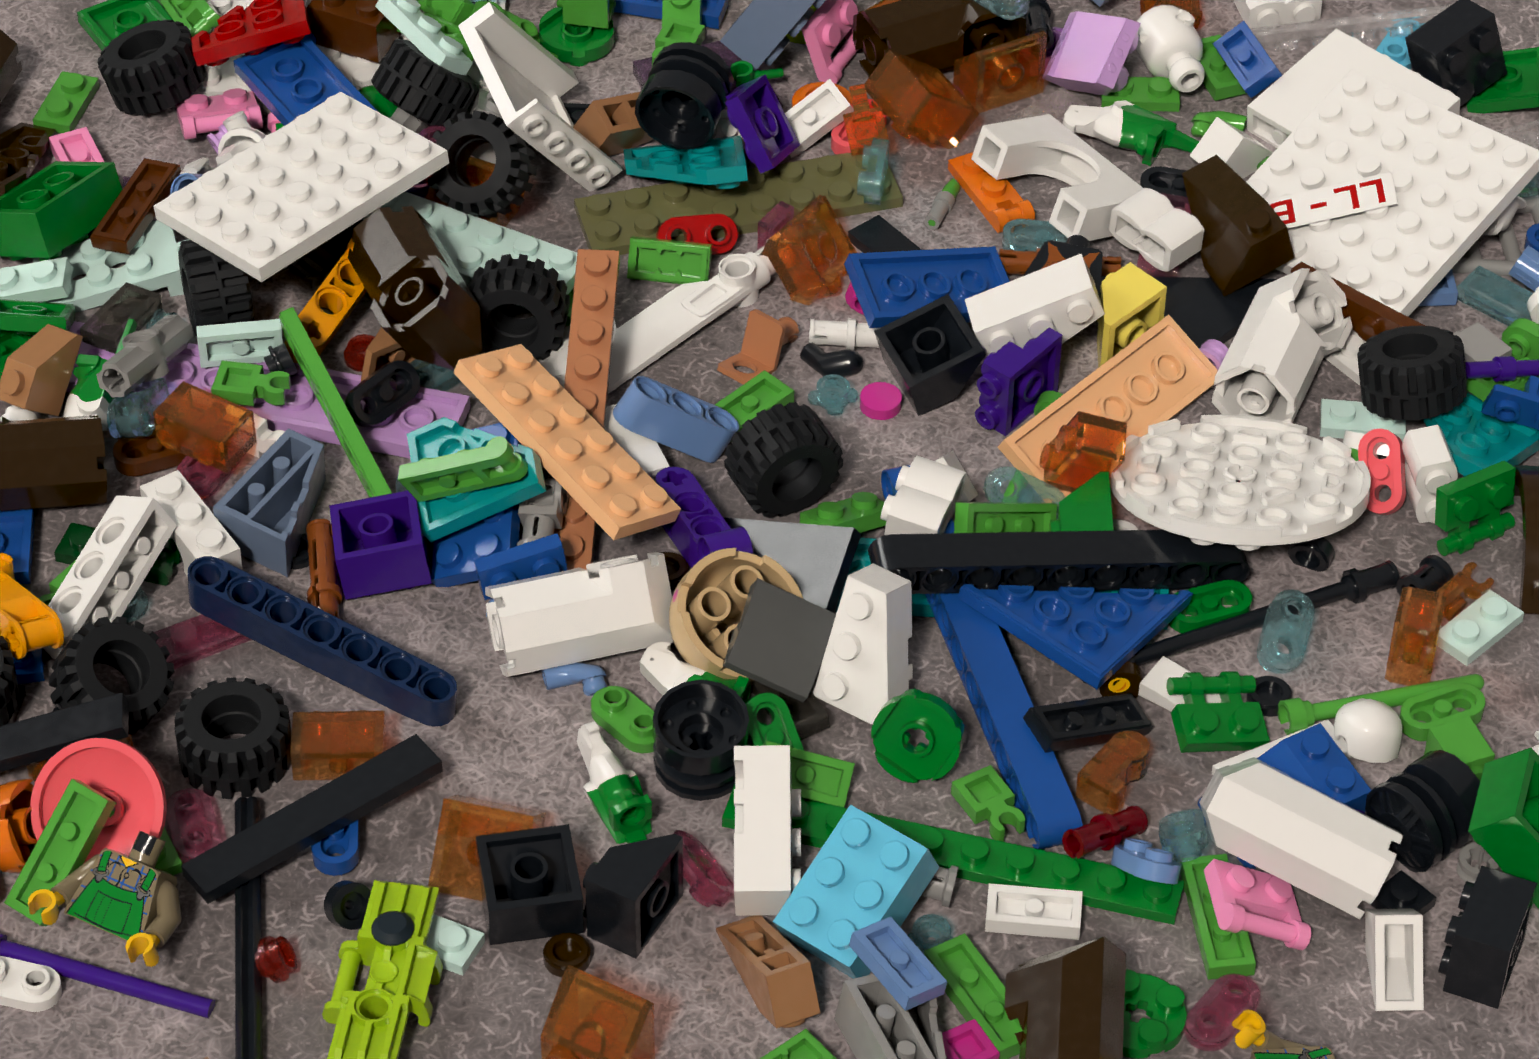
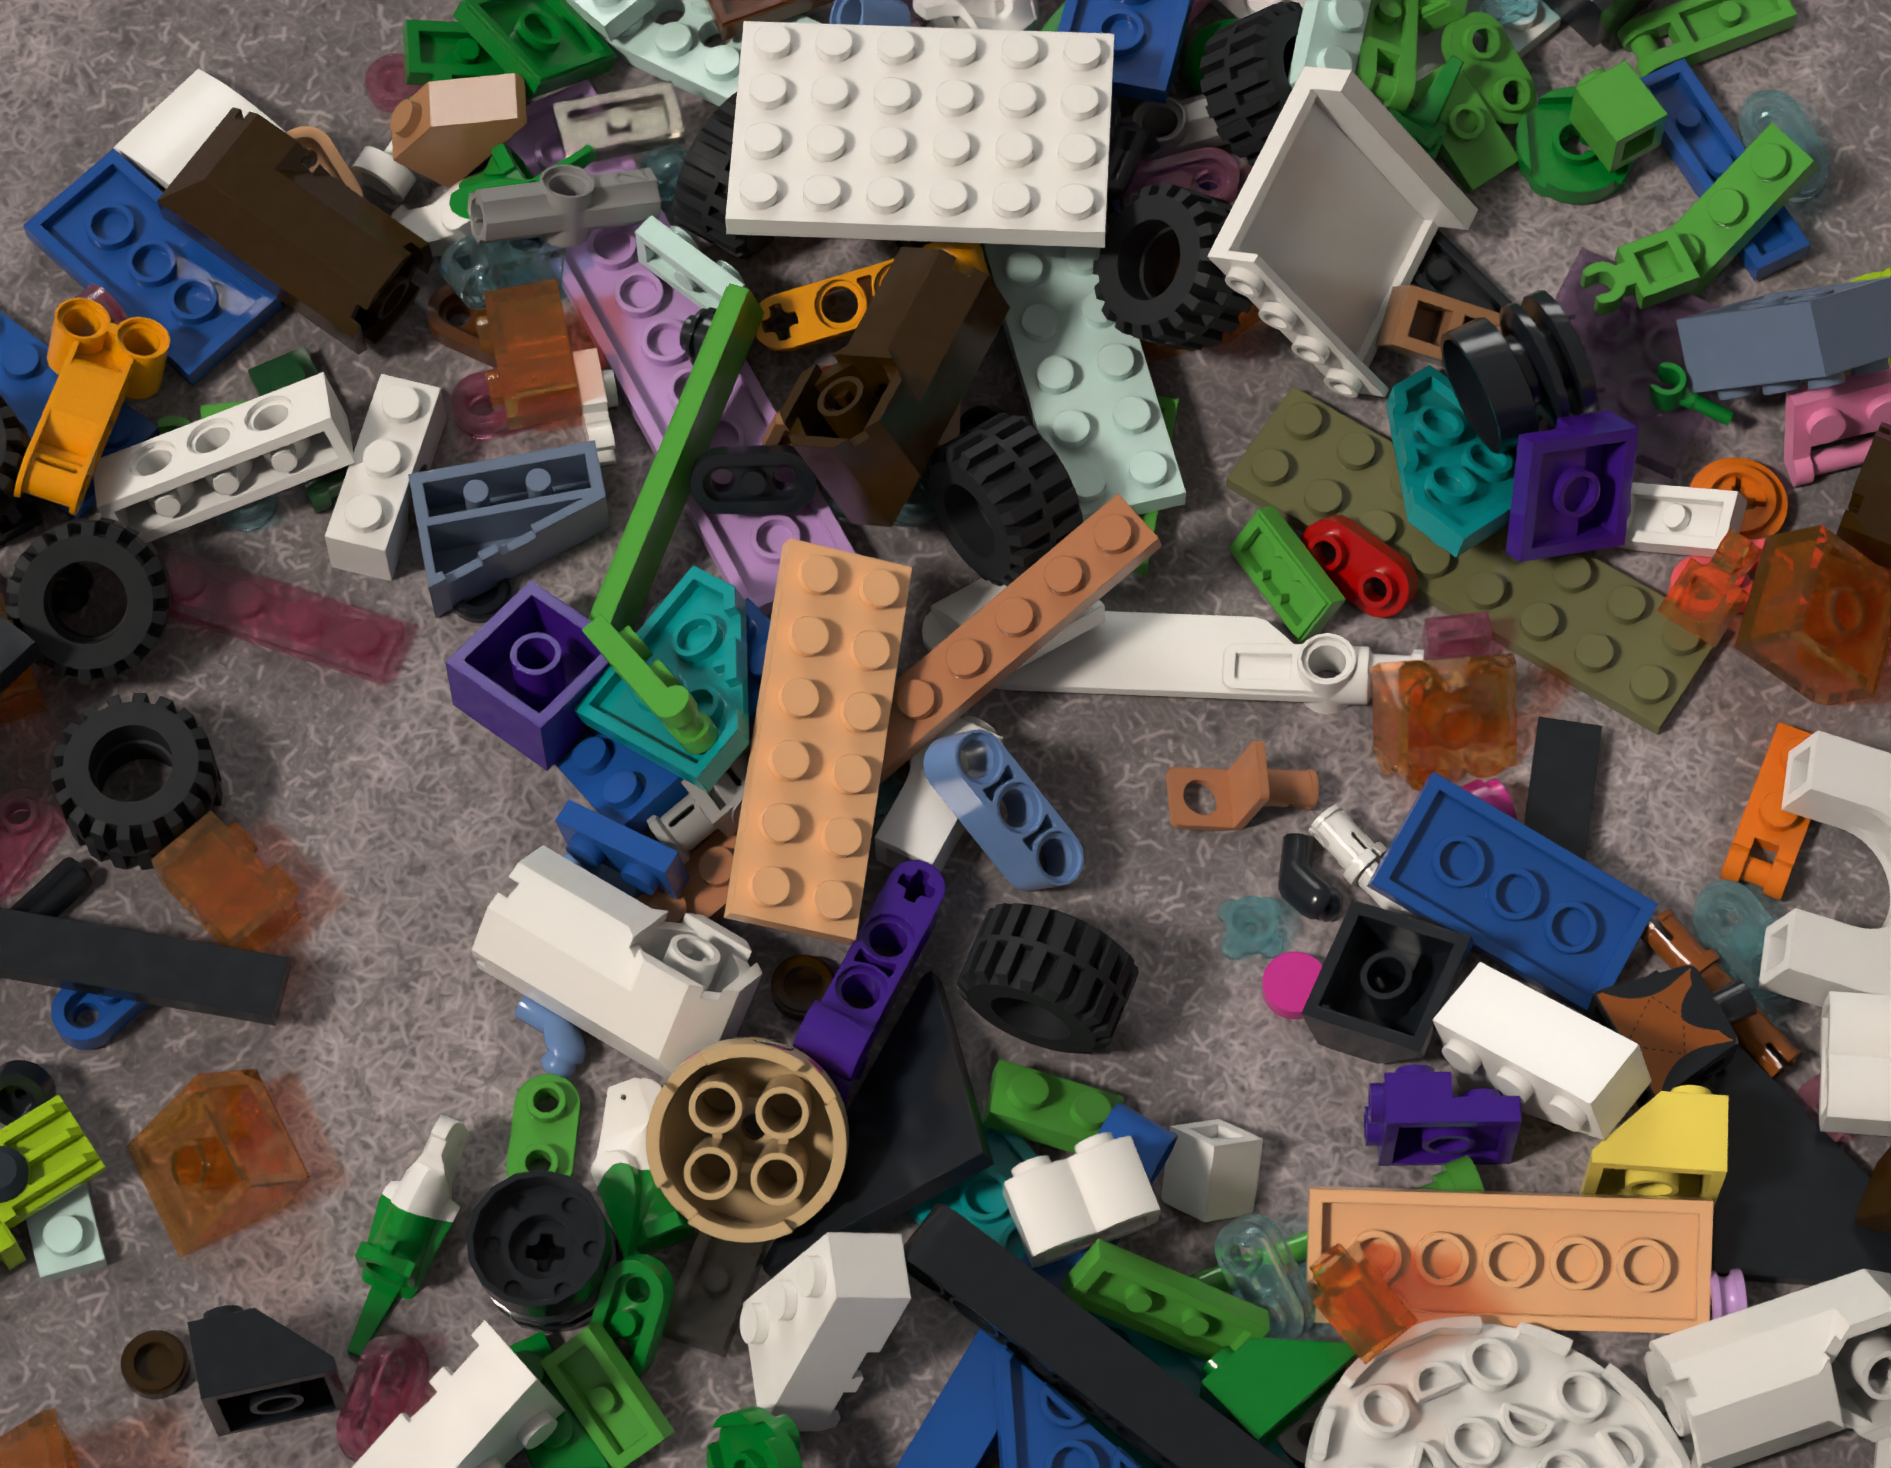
camera: 50 degrees right, 20 degrees up
(246, 382) = (641, 330): bright green plate -> none
(322, 642) = (334, 717): dark blue beam -> none
(323, 589) = (429, 679): dark orange pin -> none
(529, 884) = (185, 1246): black slope -> none
(756, 395) = (1141, 857): bright green plate -> none
(780, 640) = (743, 1214): dark grey slope -> none
(872, 181) = (1658, 660): clear light blue plate -> none
(942, 204) = (1702, 776): light grey piece -> none

